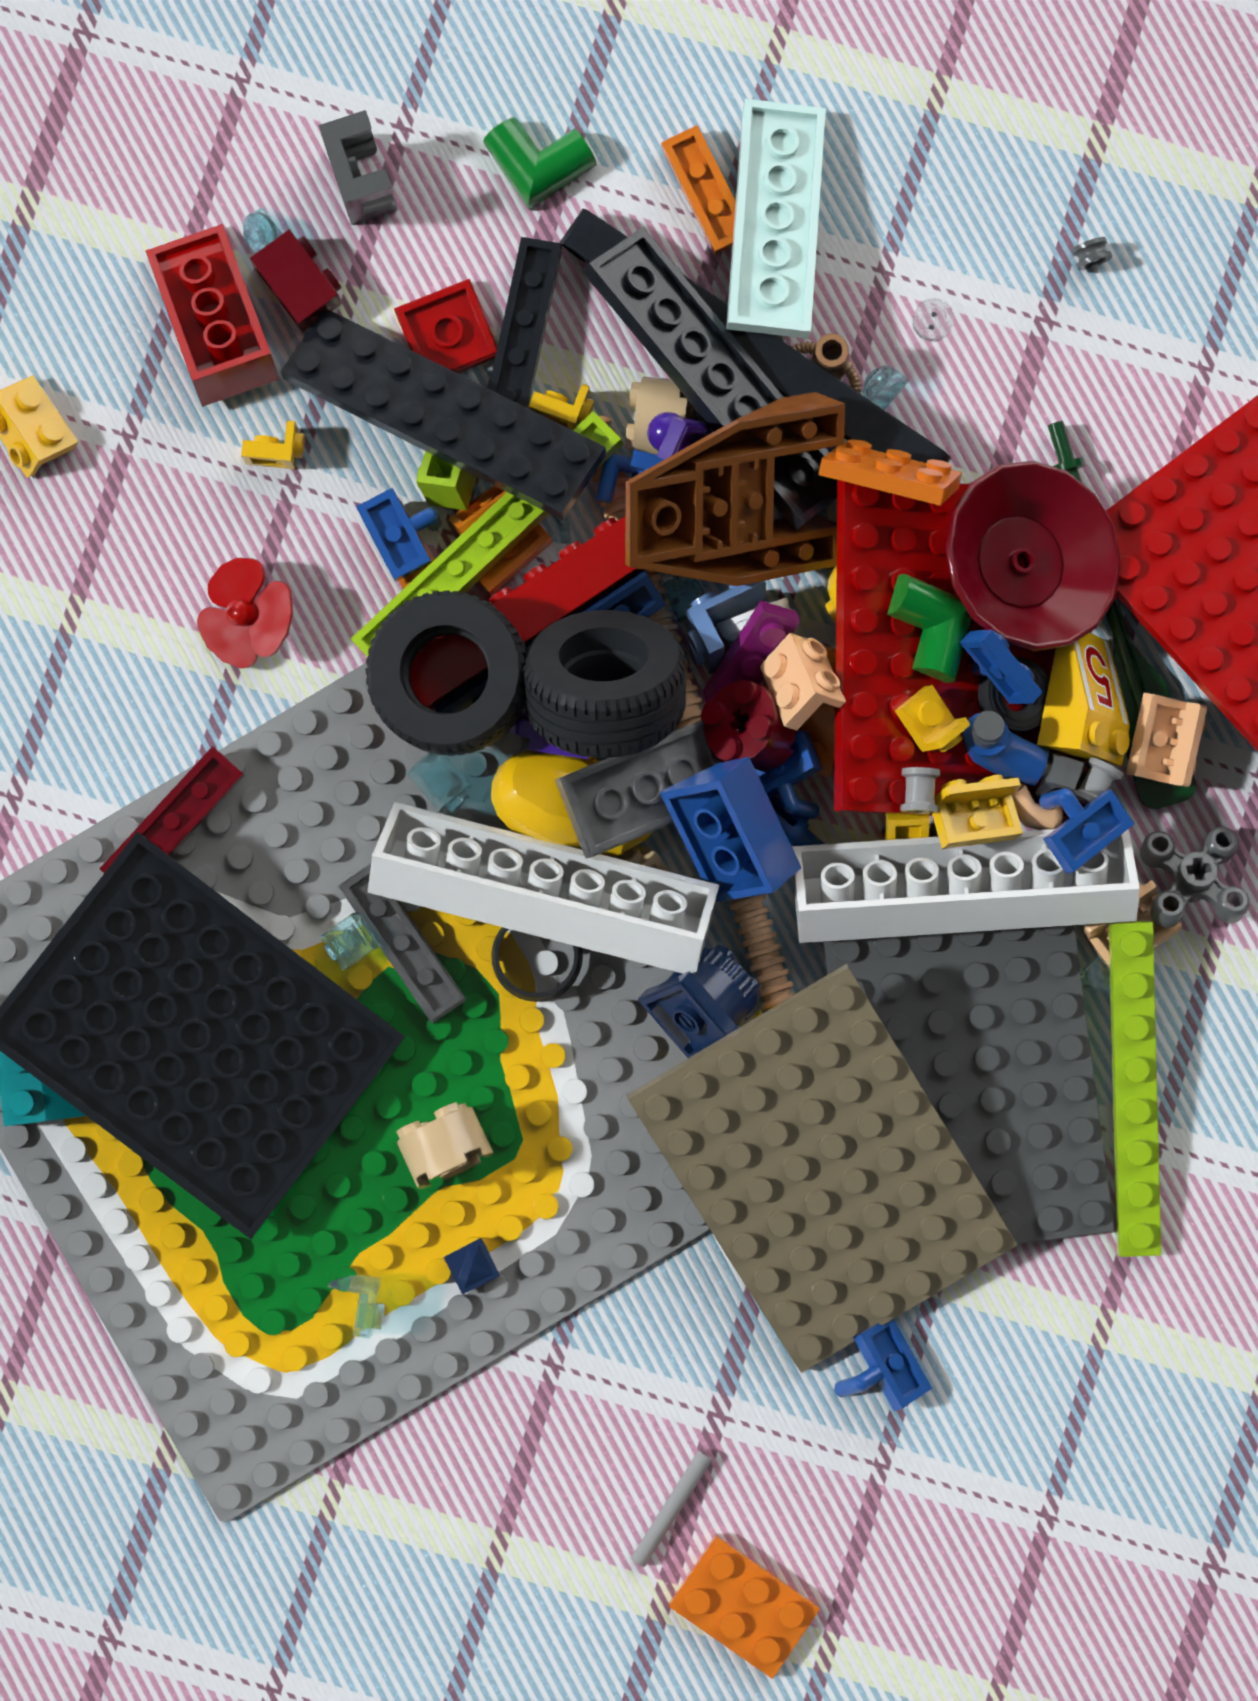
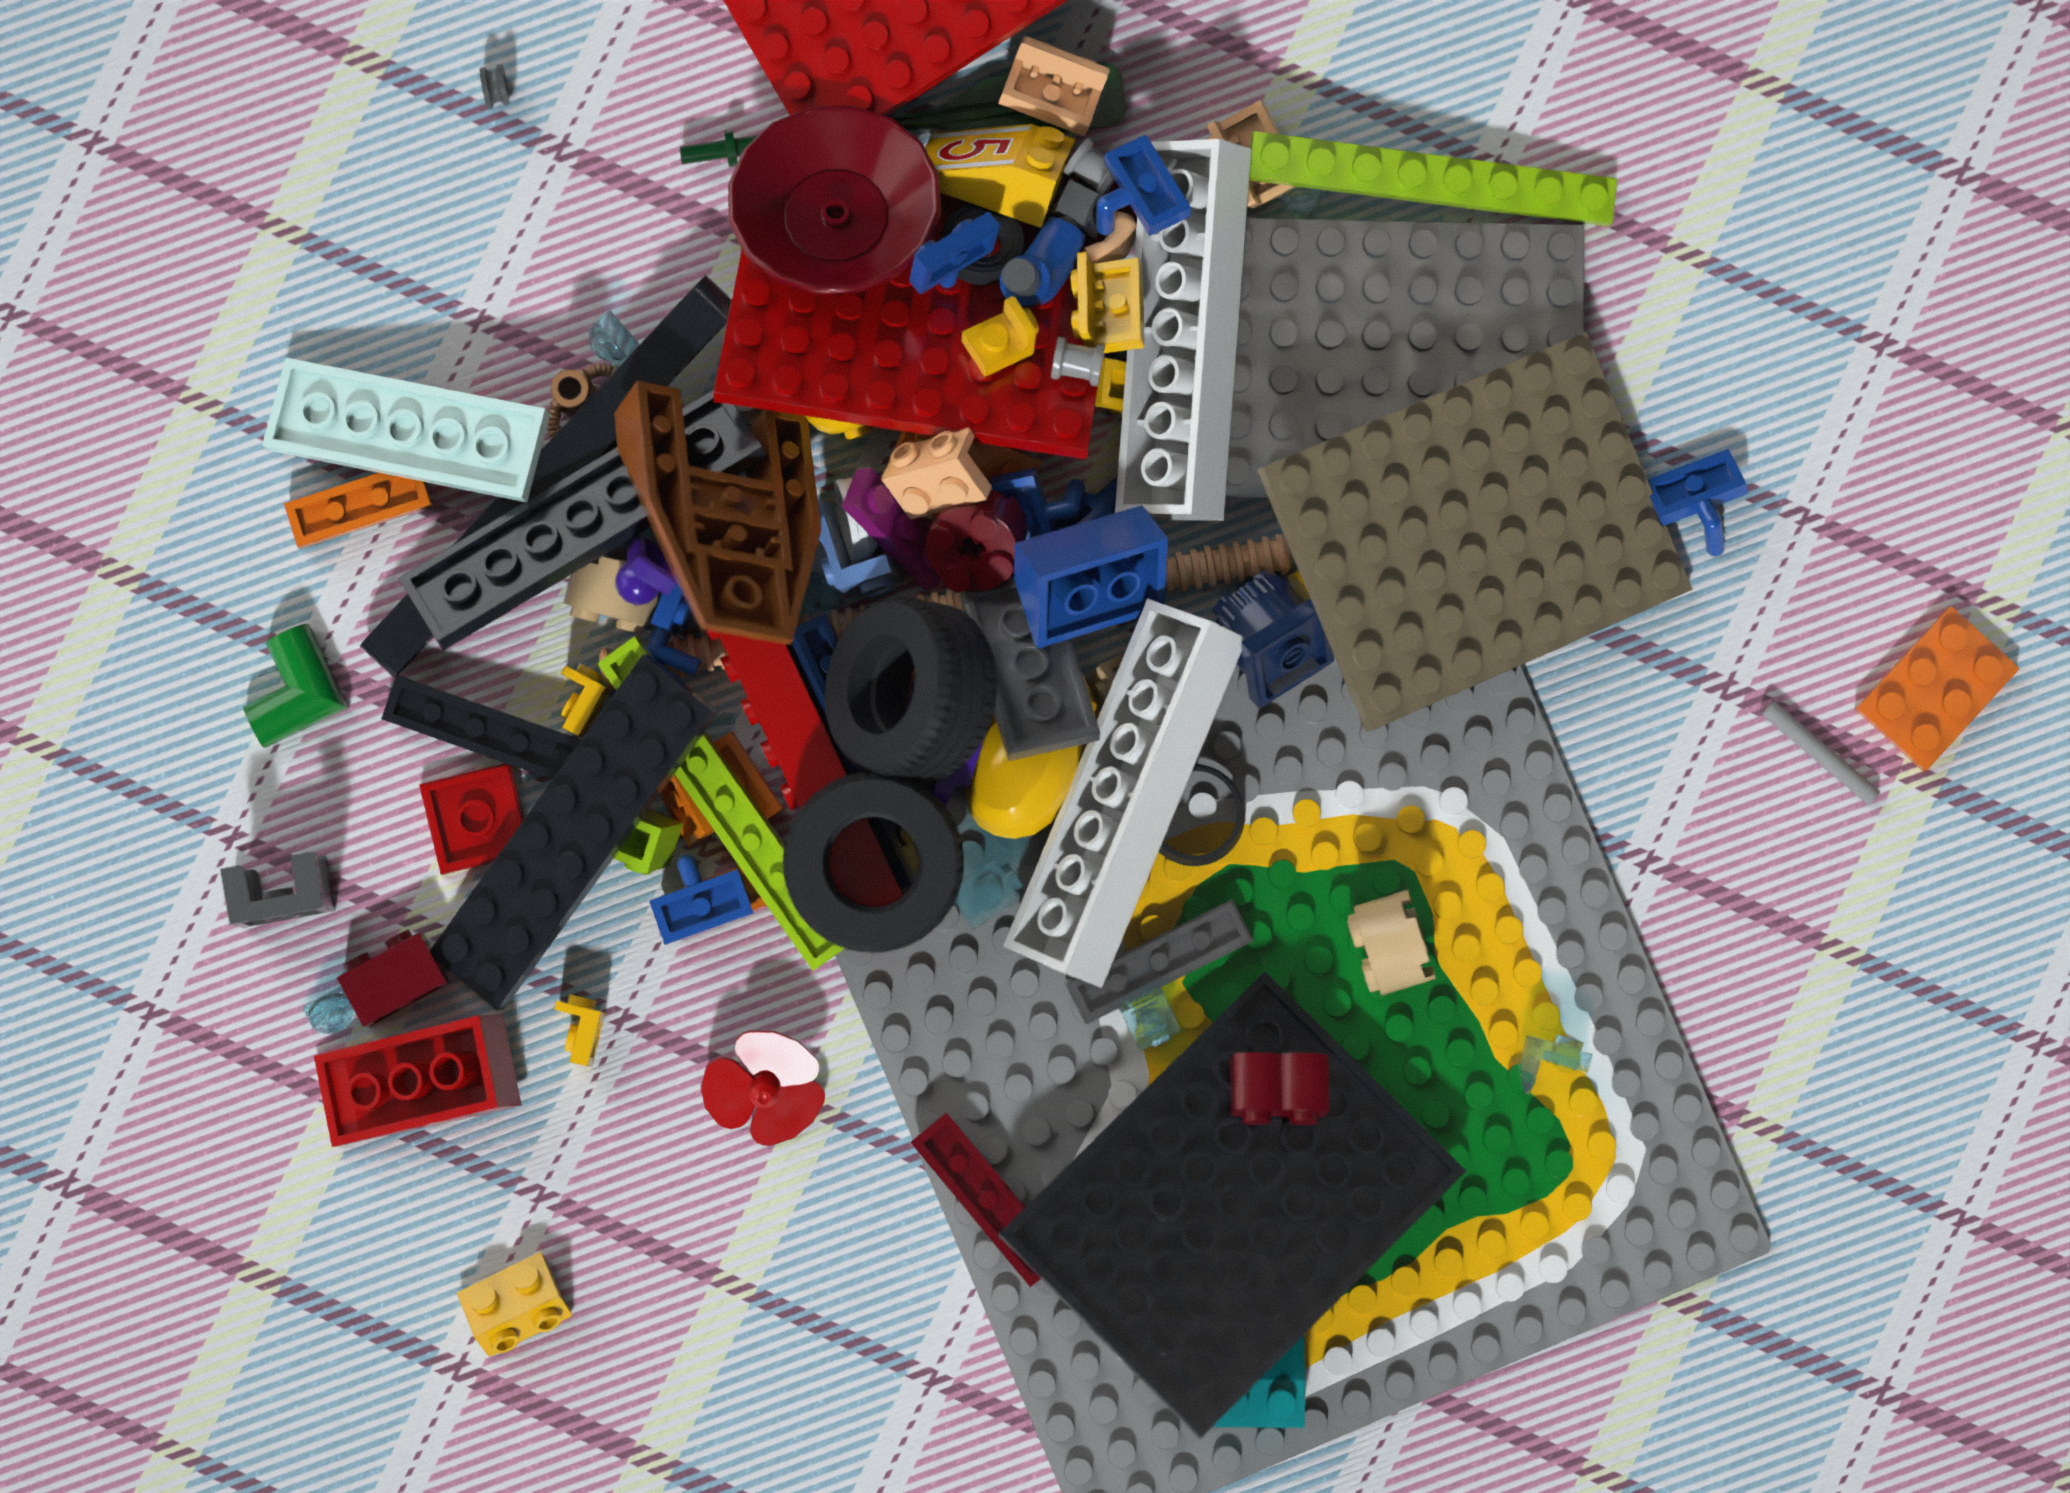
camera: 80 degrees left, 0 degrees up
(301, 1062) = (1279, 1086): none -> dark red brick
(472, 1266) = (1527, 933): dark blue tile -> none
(891, 472) = (719, 341): orange plate -> none
(933, 319) = (542, 273): clear tile -> none
(942, 621) = (896, 309): green brick -> none
(1187, 887) = (1198, 68): dark grey gear -> none

